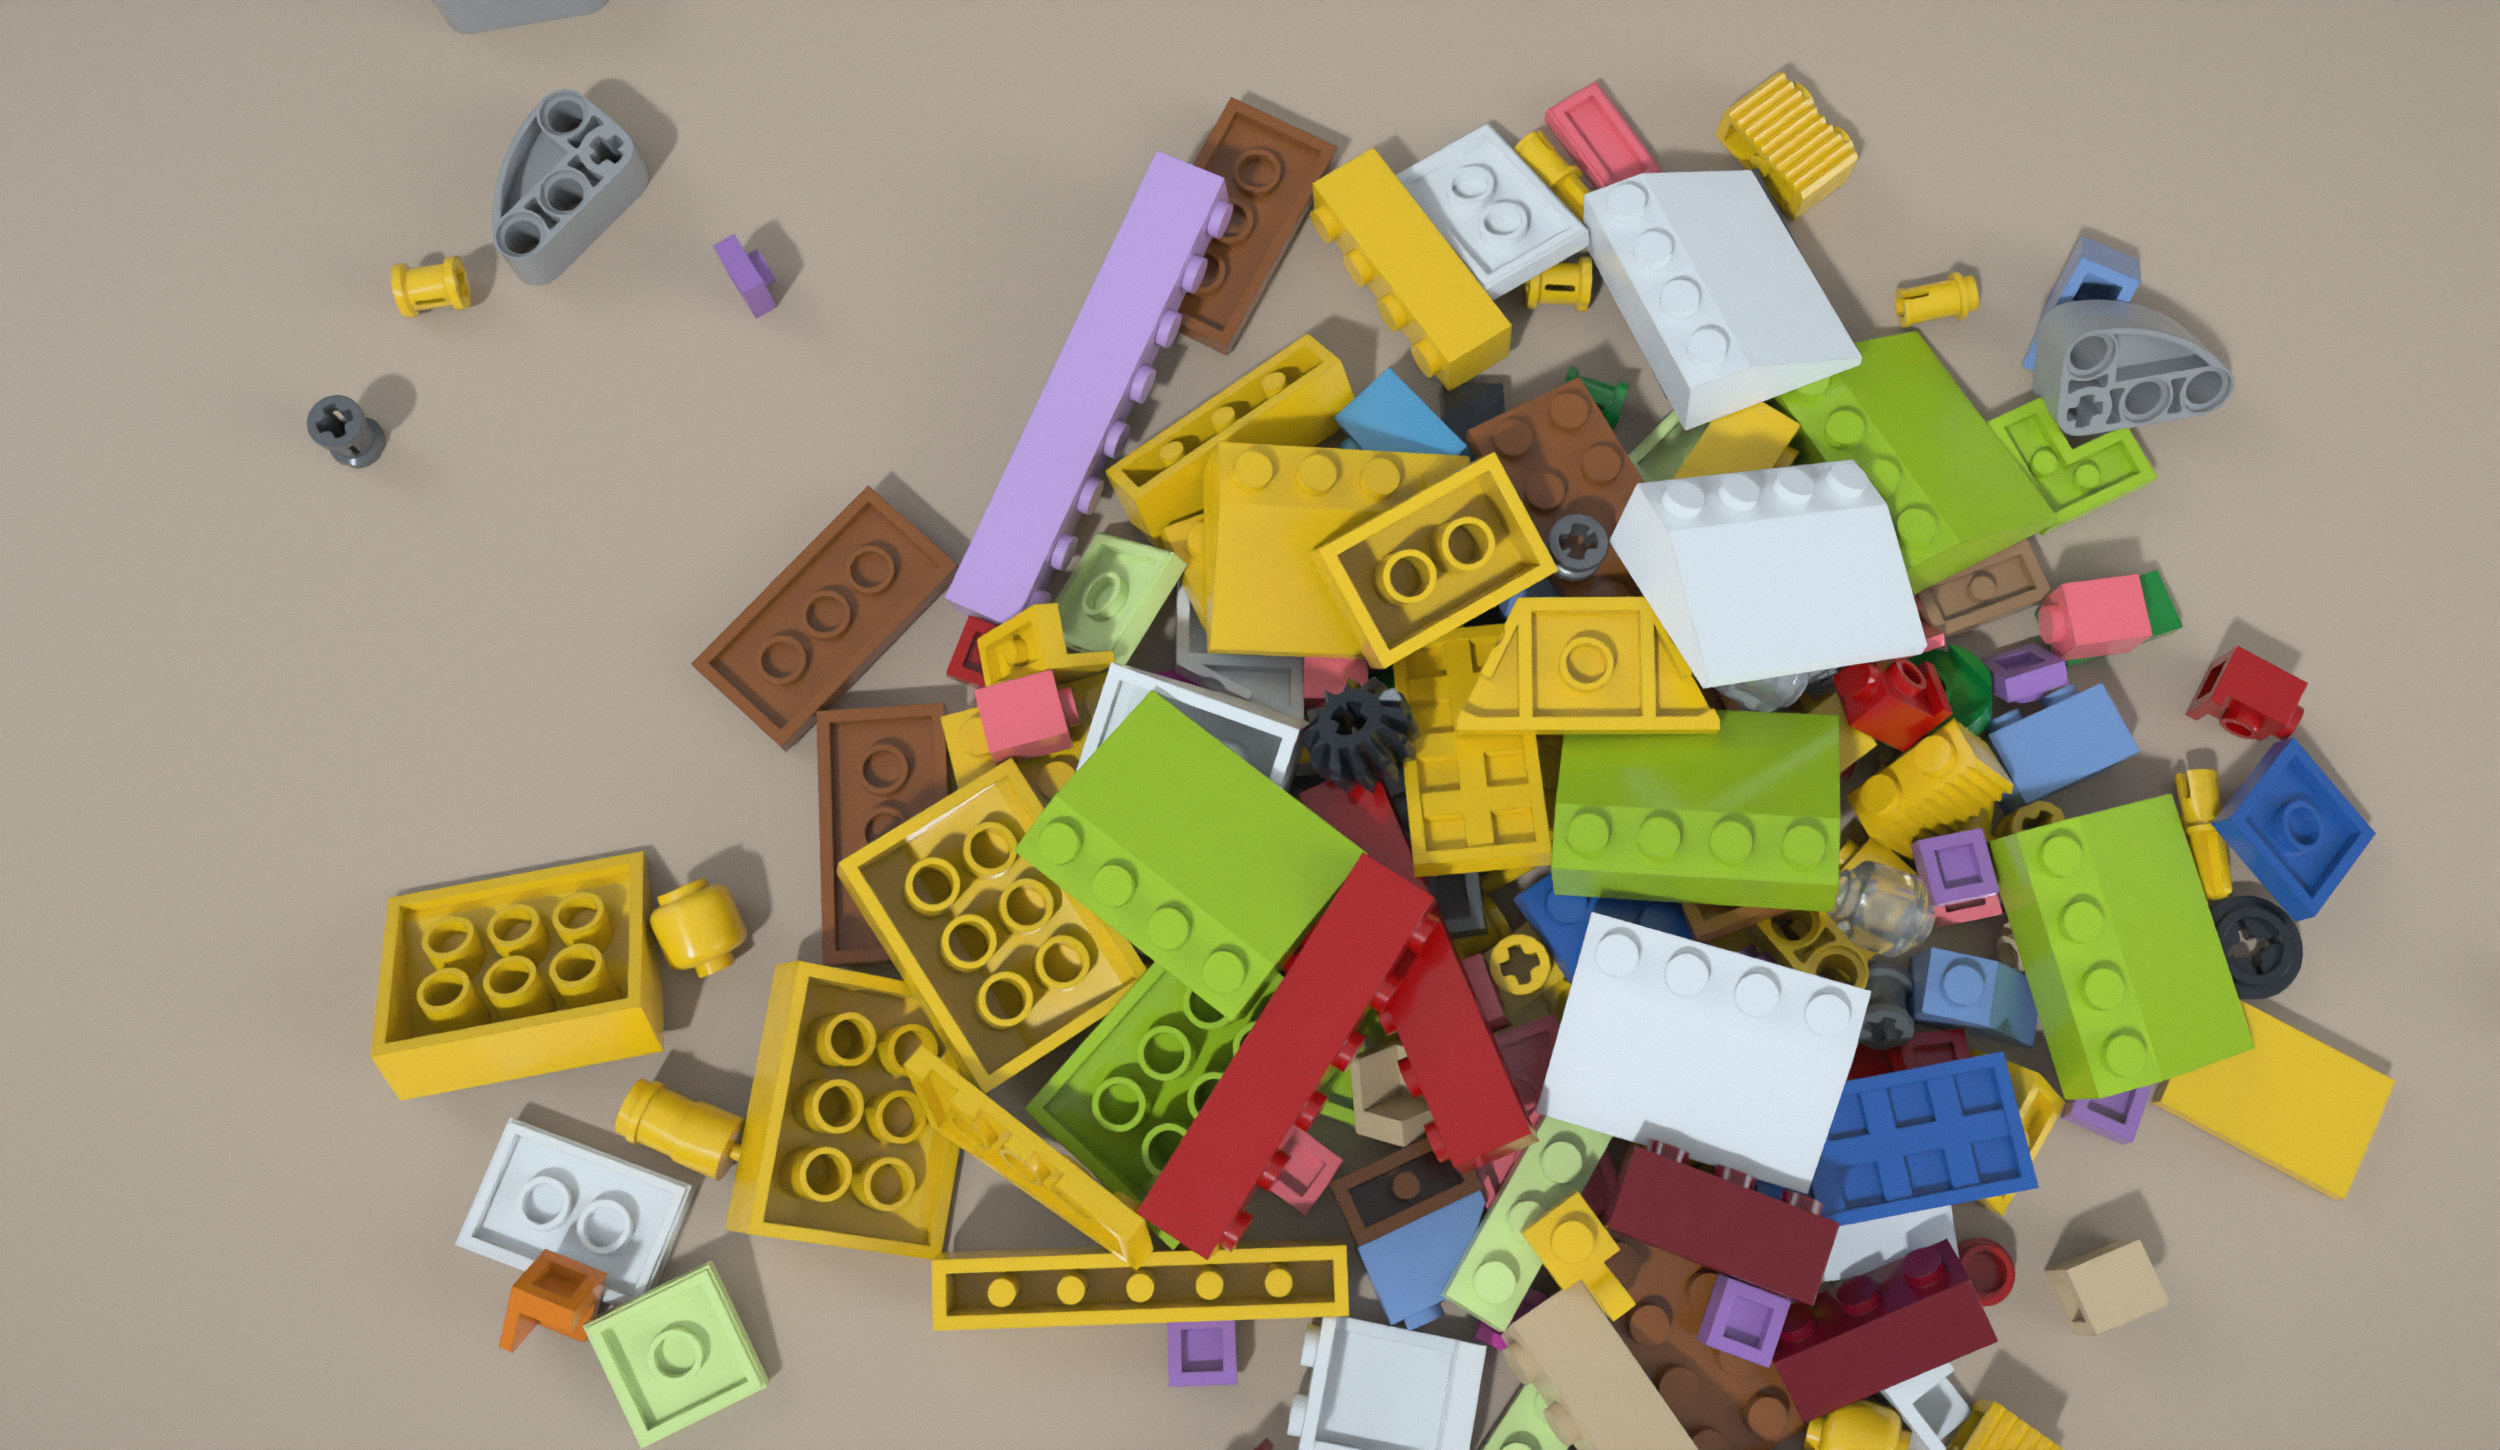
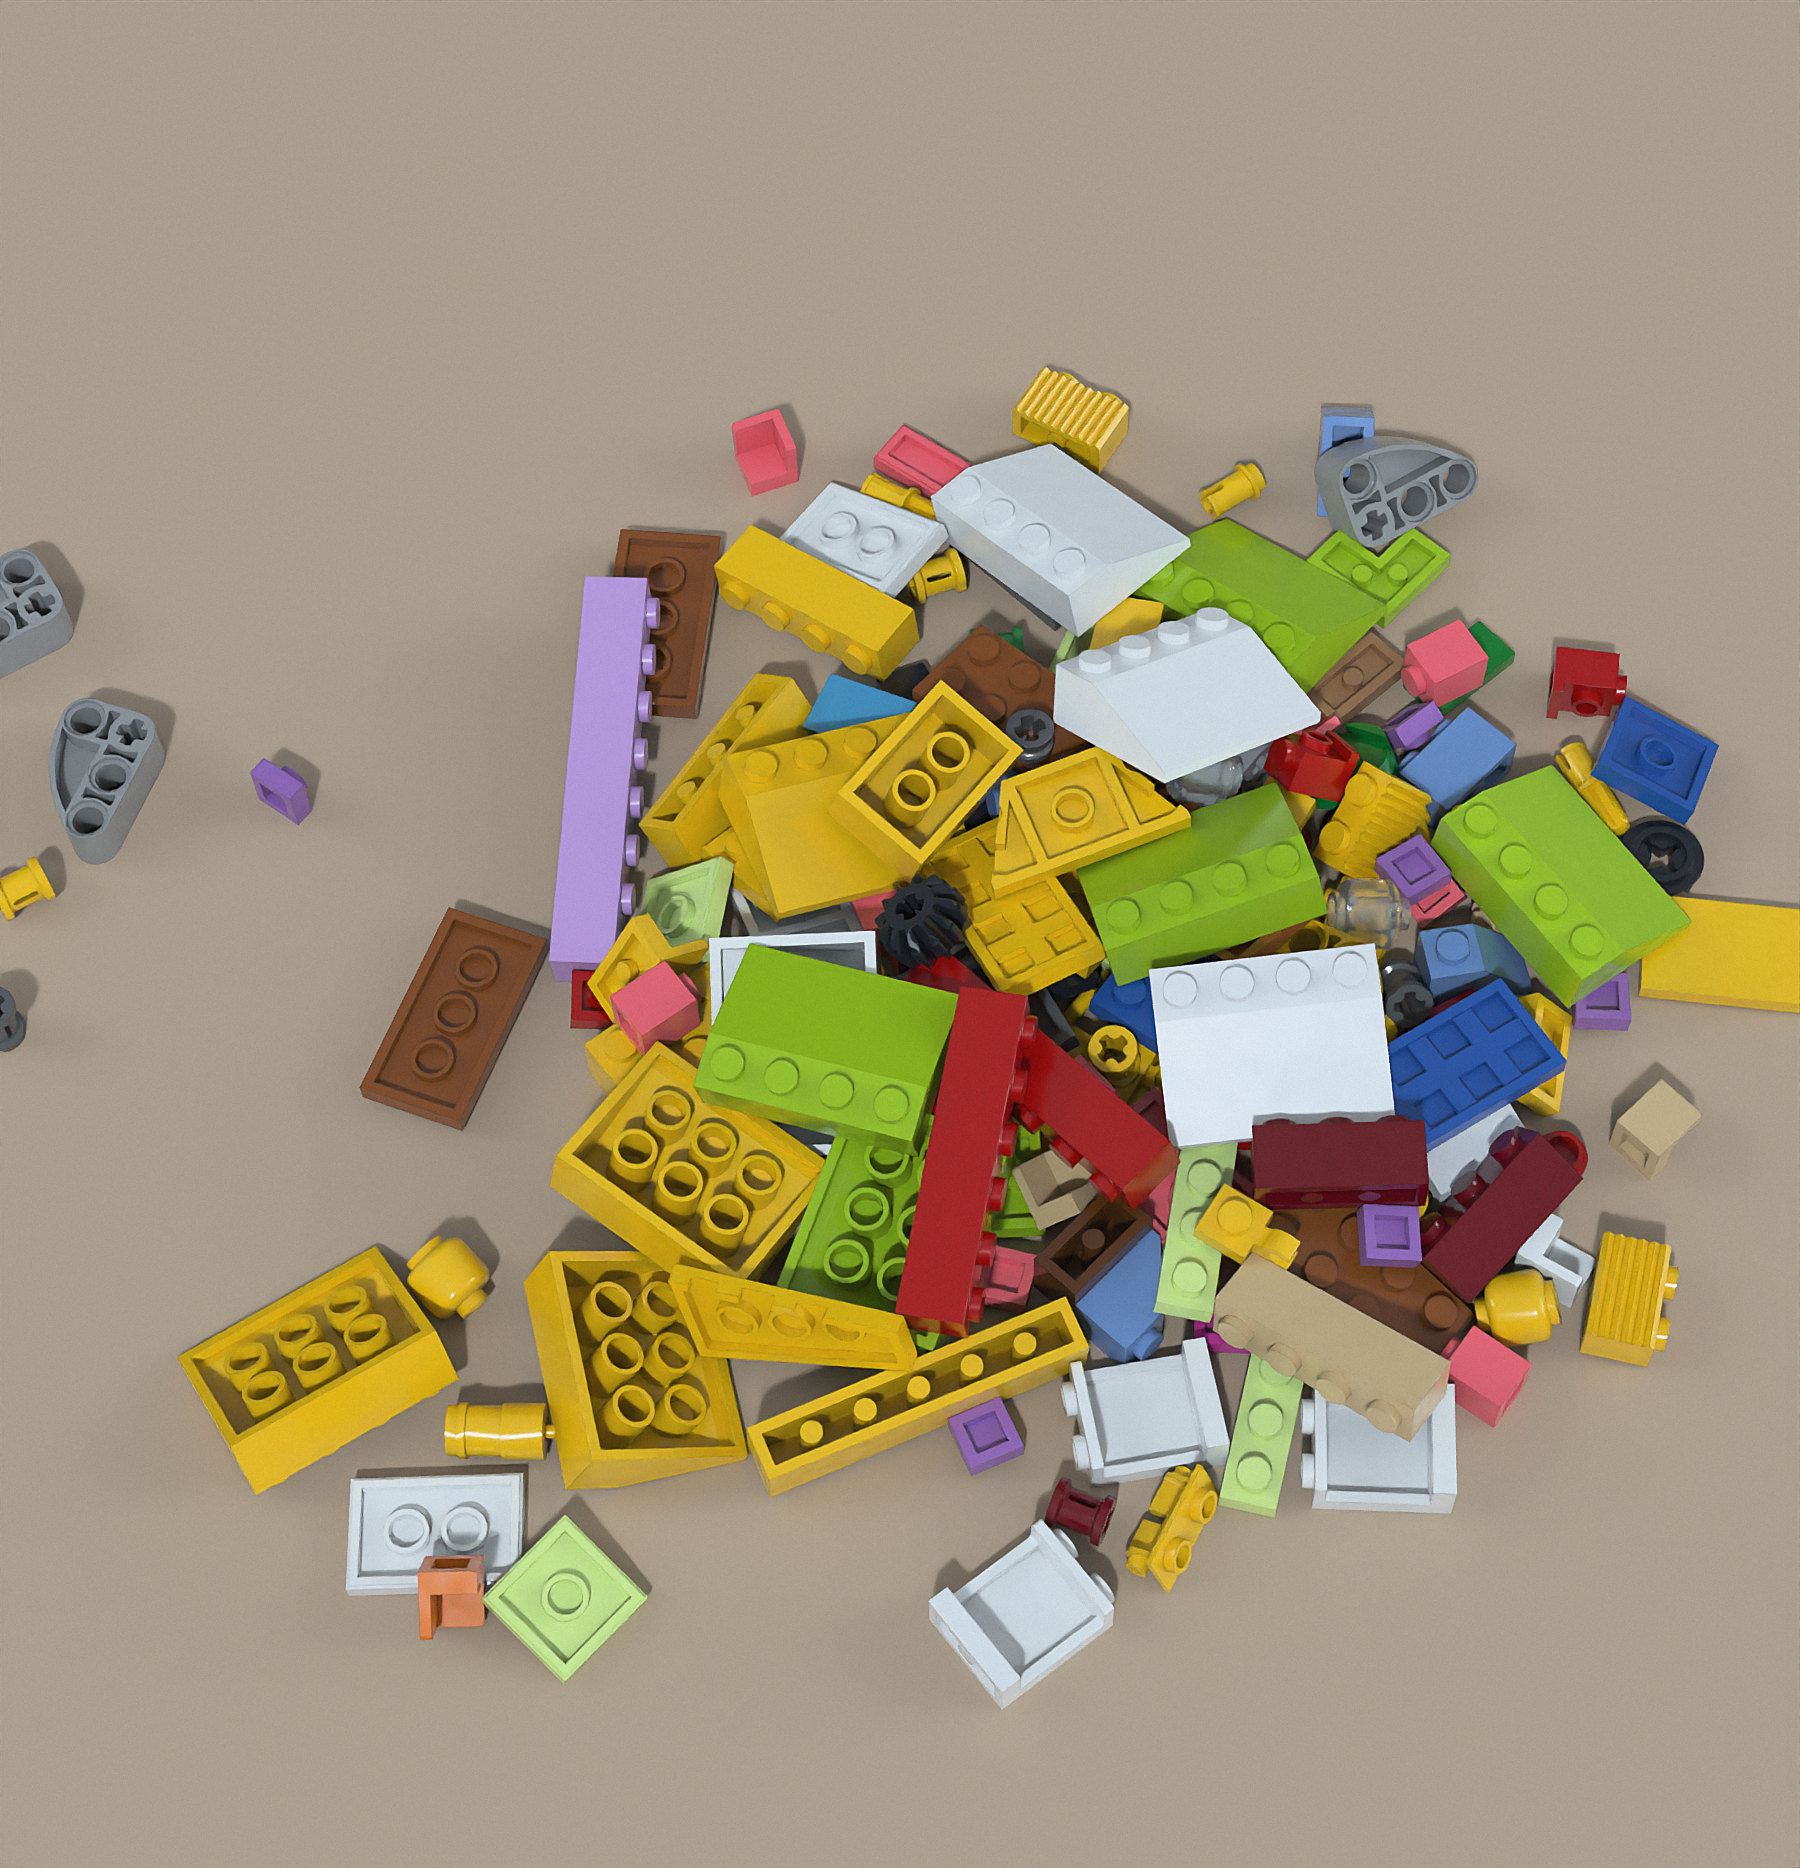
camera: 20 degrees left, 15 degrees down
(871, 778) = (535, 1116): dark orange plate -> none
(1427, 60) = (765, 452): none -> coral panel

